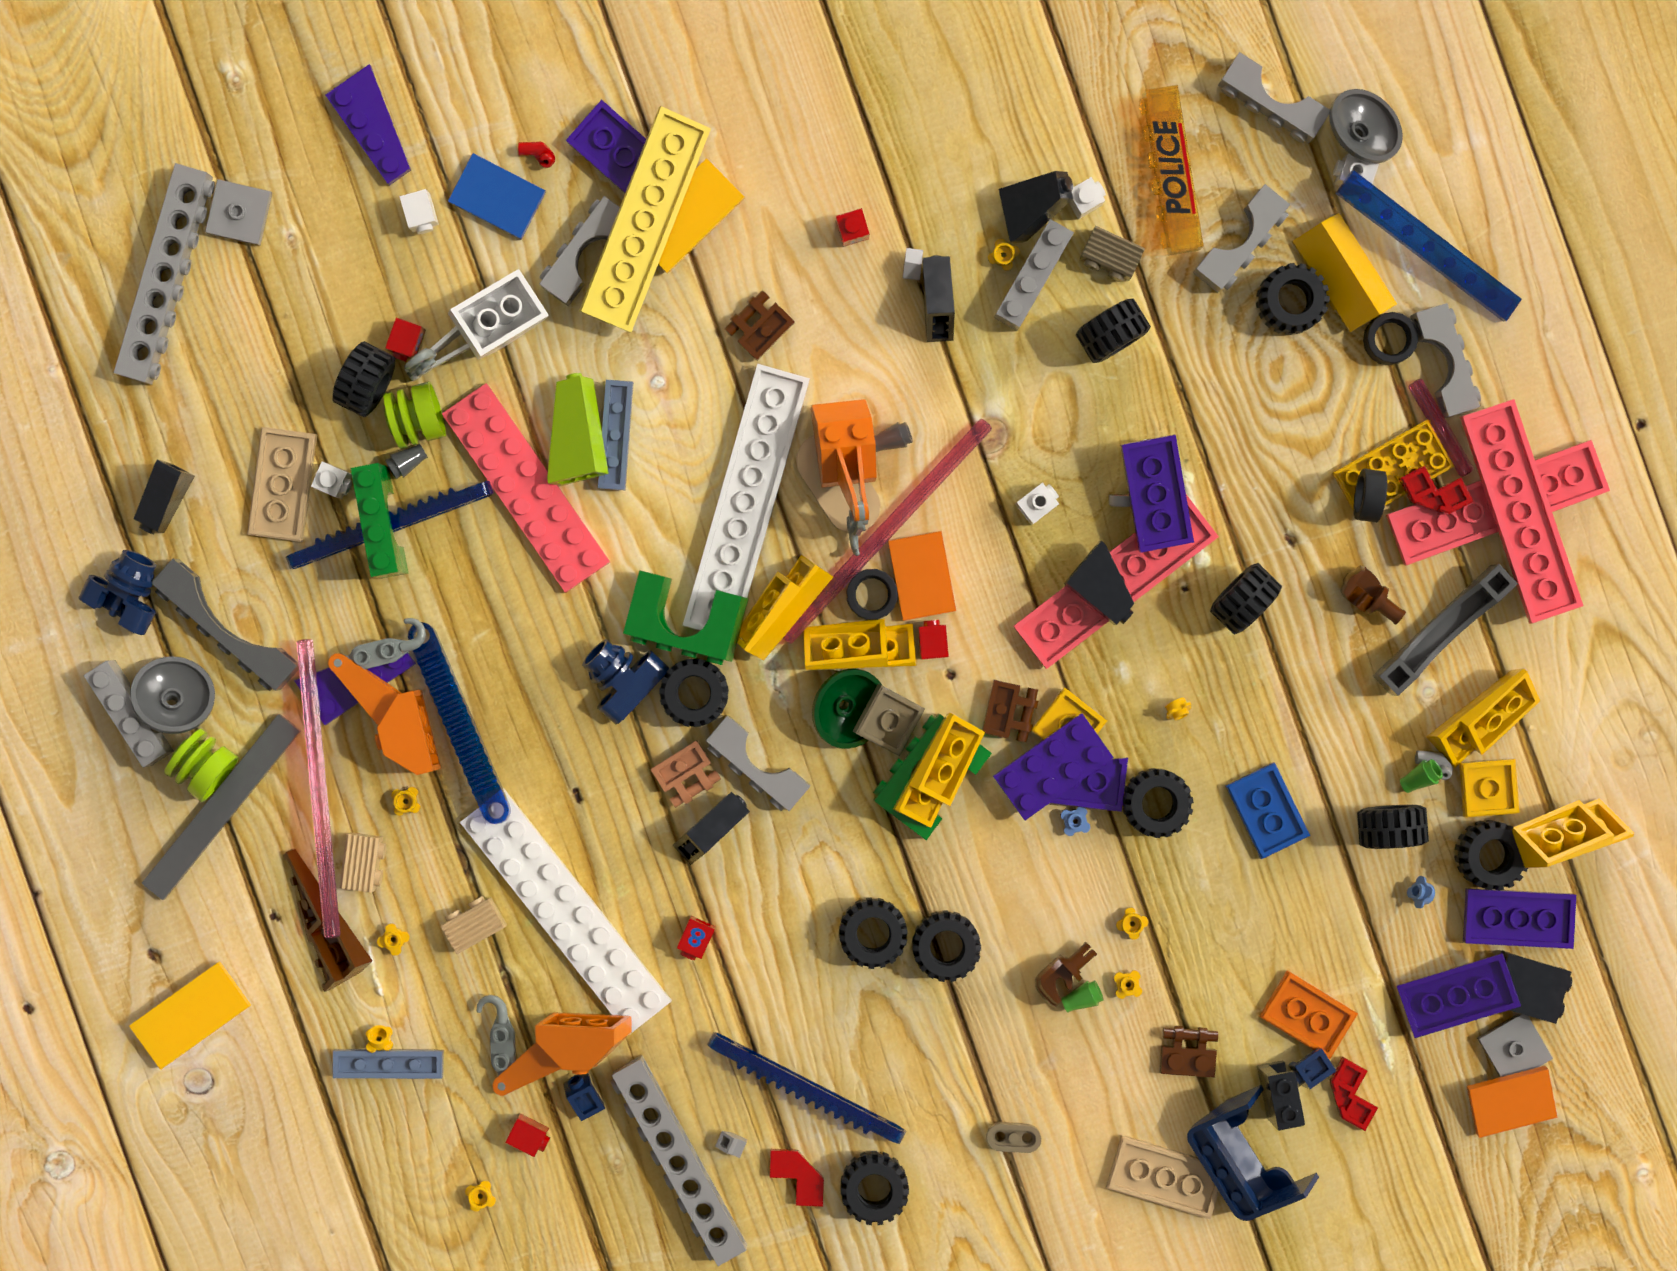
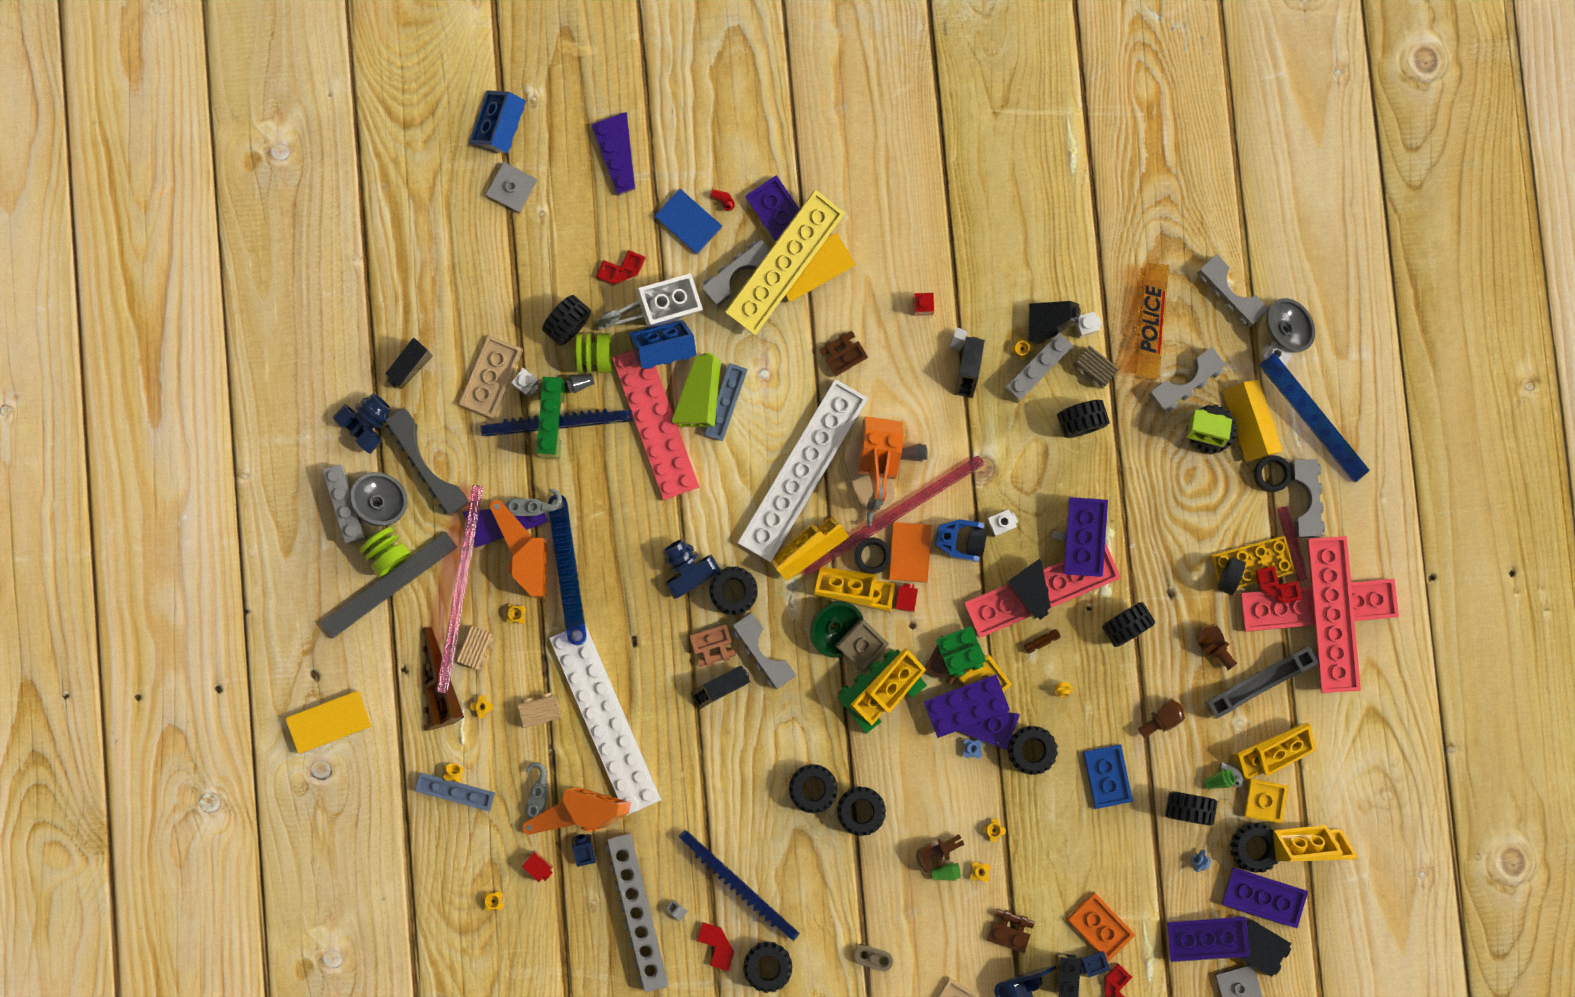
camera: 15 degrees right, 5 degrees down
(158, 260) = (481, 156): light grey brick -> none
(193, 123) = (497, 121): none -> blue slope
(405, 339) = (600, 301): red brick -> none
(419, 211) = (634, 218): white brick -> none
(433, 283) = (629, 269): none -> red tile
(506, 378) = (663, 344): none -> blue slope
(648, 621) = (757, 558): green arch -> none
(695, 938) = (689, 760): red brick -> none
(1008, 540) = (975, 542): none -> blue piece
(1026, 695) = (961, 651): none -> green plate
(1133, 650) = (1042, 641): none -> reddish brown axle
(1290, 299) = (1209, 428): none -> lime brick
(1328, 712) = (1165, 719): none -> reddish brown piece

